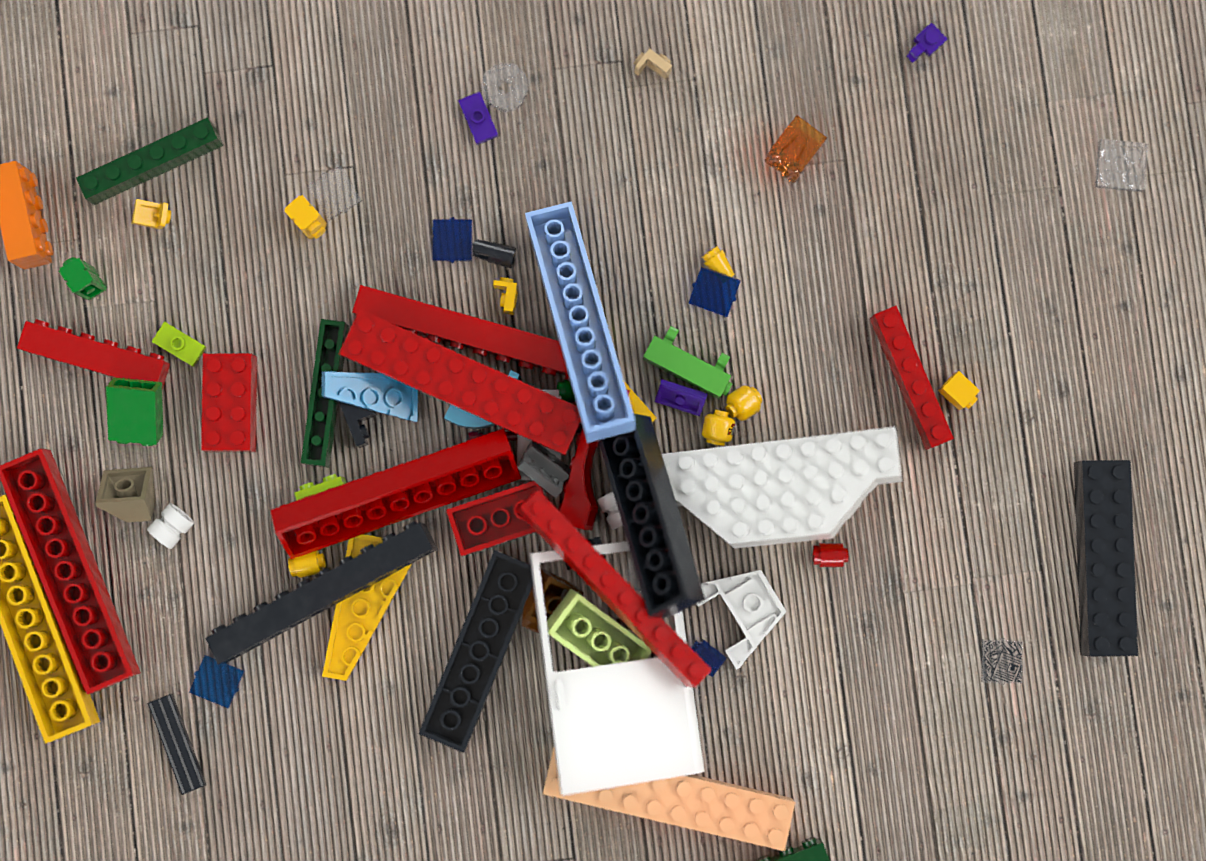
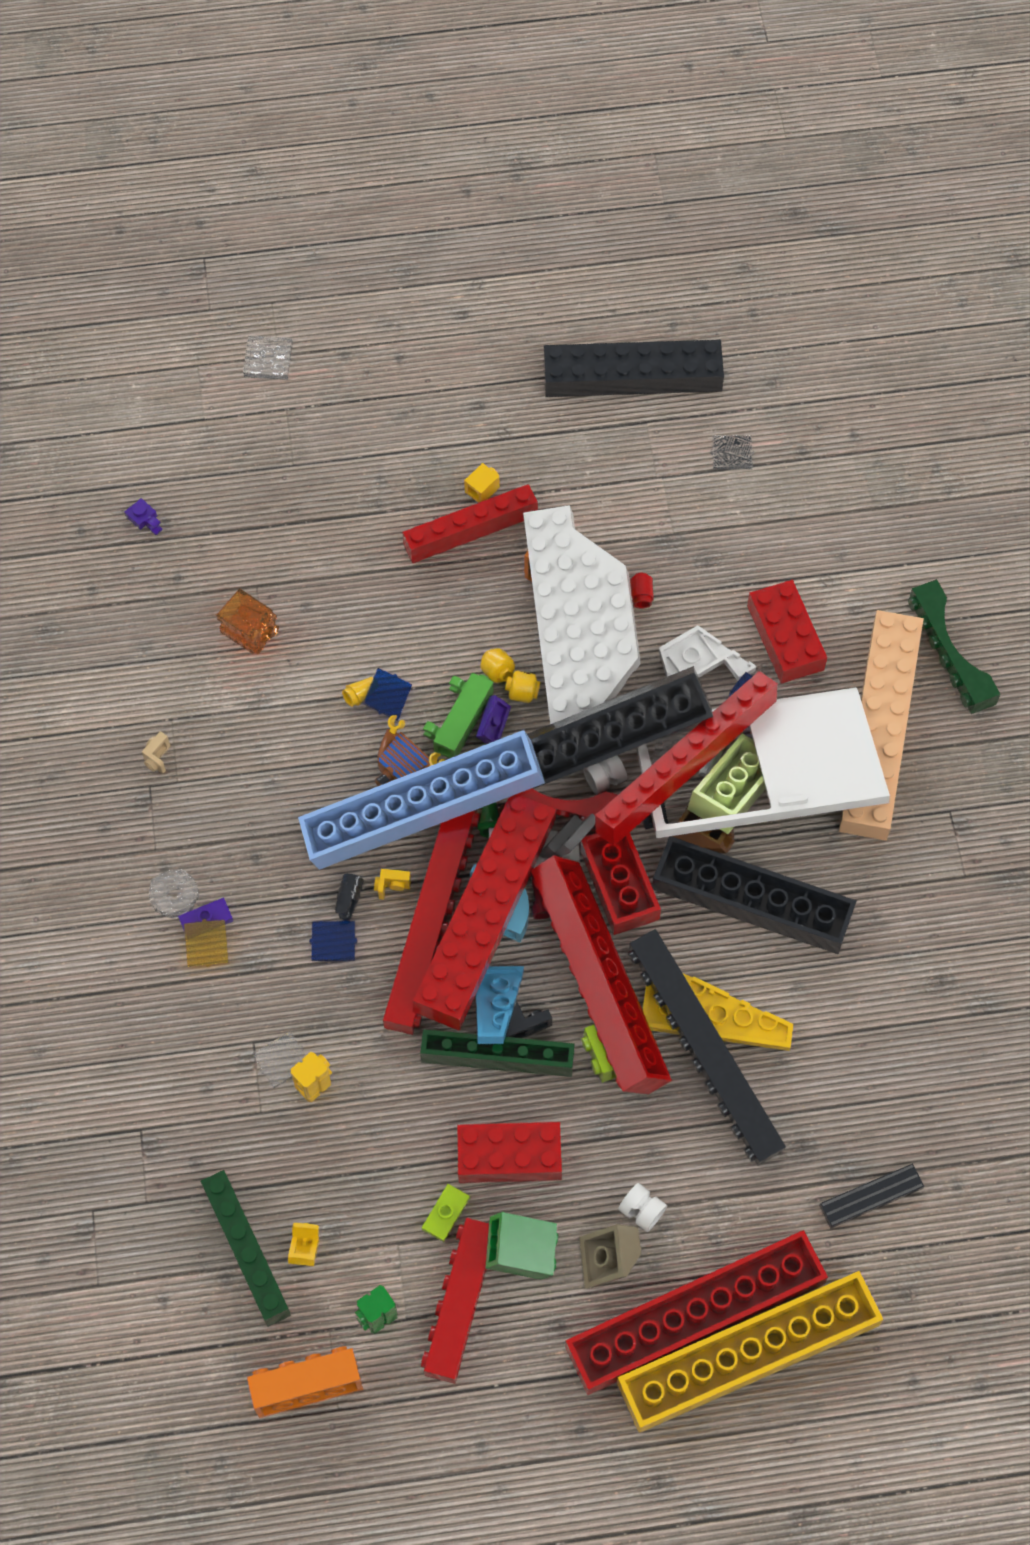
camera: 85 degrees left, 20 degrees down
(216, 681) = (803, 1159): clear blue piece -> none
(307, 564) = (677, 1068): yellow brick -> none
(450, 118) = (206, 943): none -> clear yellow piece
(637, 306) = (399, 755): none -> torso
(778, 704) = (787, 631): none -> red brick

